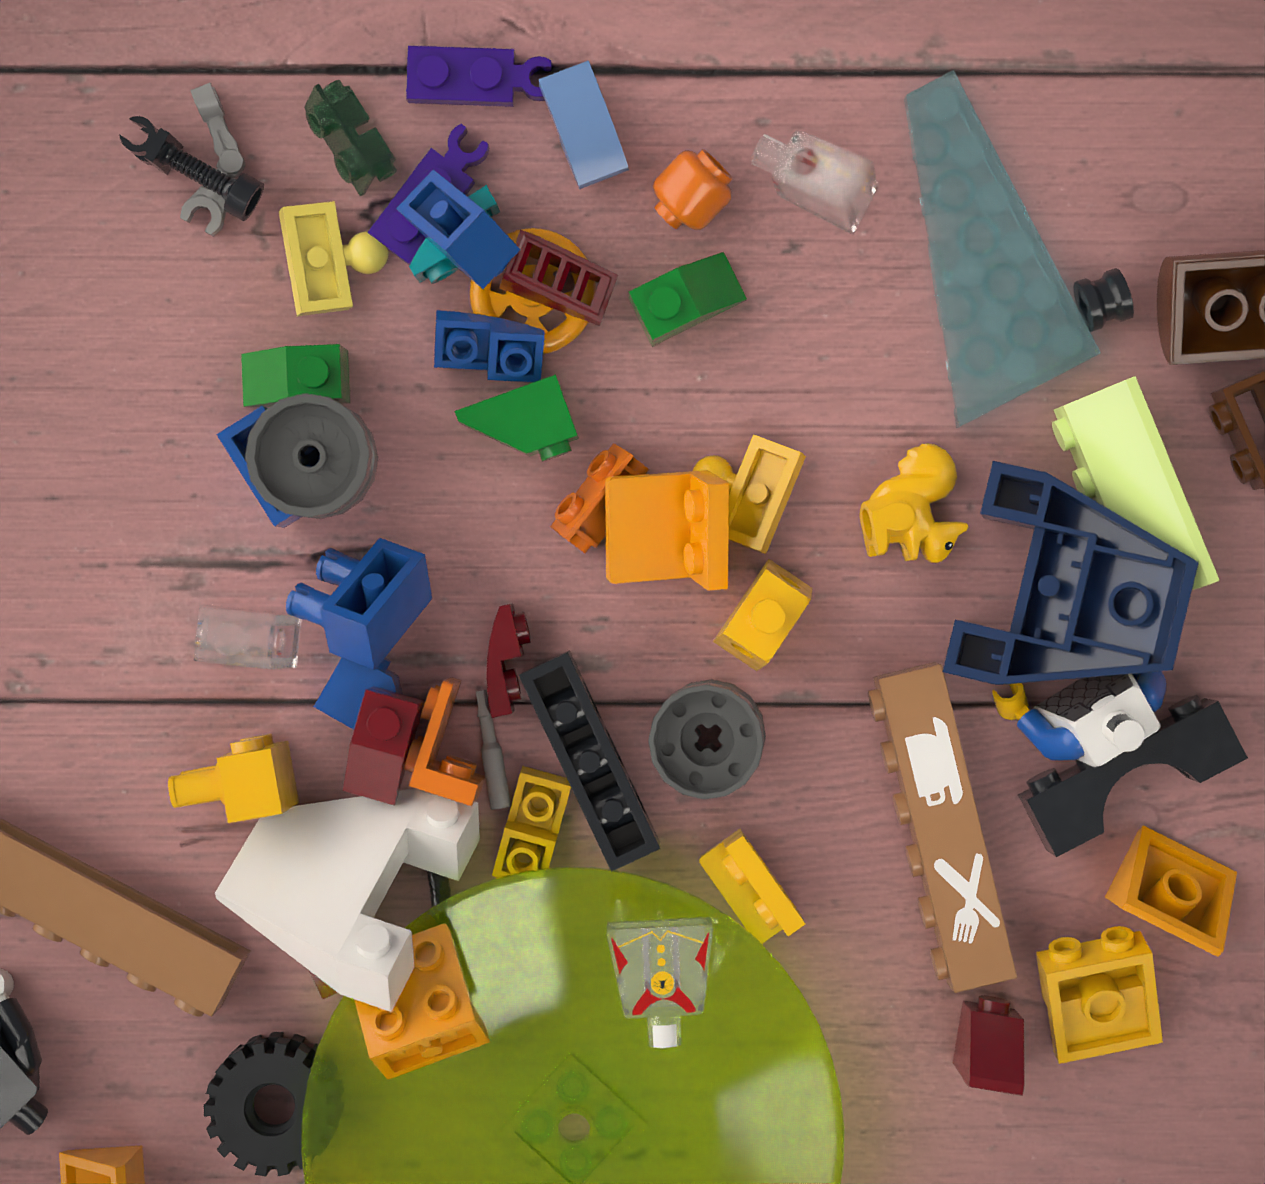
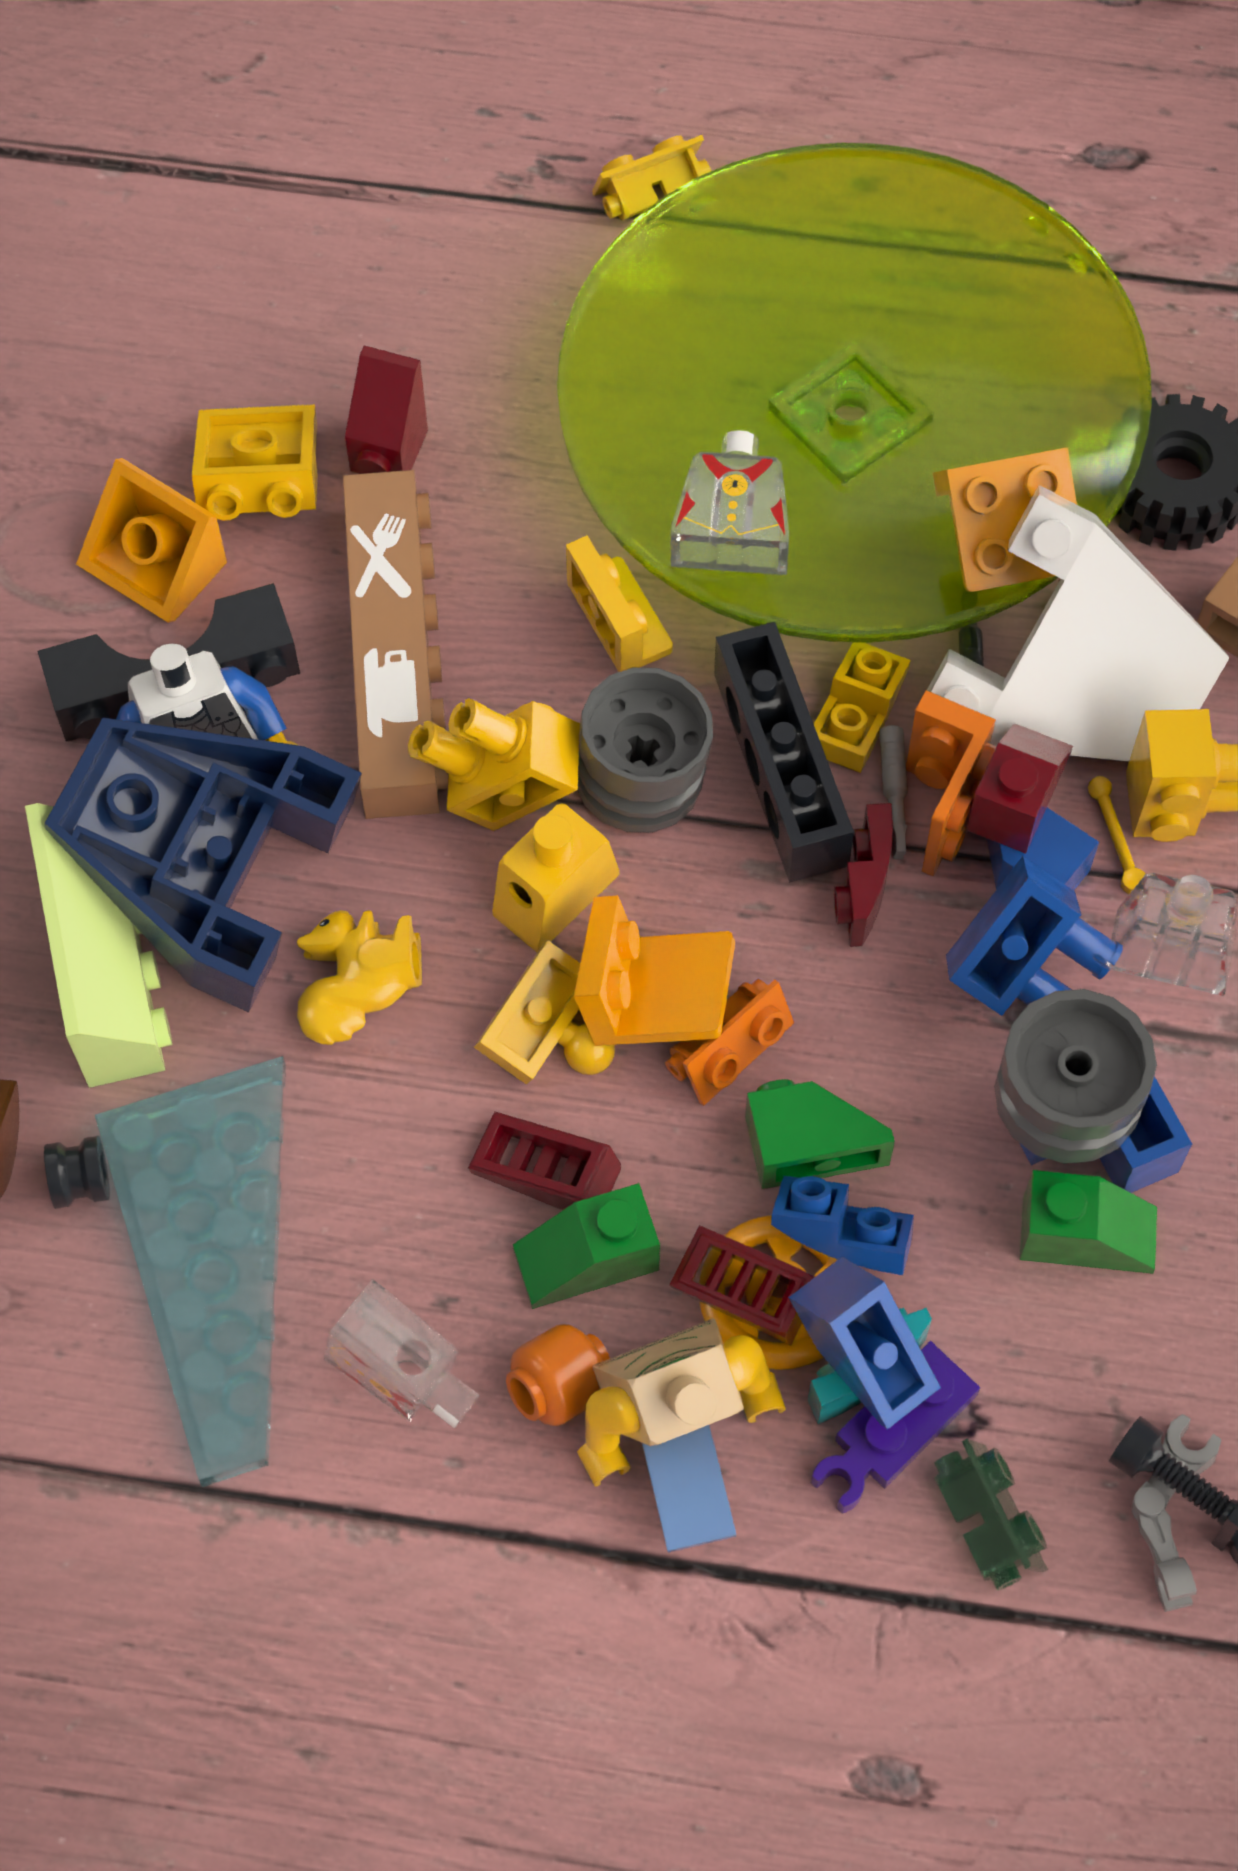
camera: 170 degrees left, 25 degrees down
(284, 697) = (1100, 789): none -> yellow hinge
(320, 260) = (1045, 1363): light yellow plate -> none
(470, 76) = (824, 1572): dark purple plate -> none
(596, 172) = (673, 1391): none -> torso
(688, 357) = (587, 1173): none -> dark red slope
(824, 706) = (501, 762): none -> yellow brick

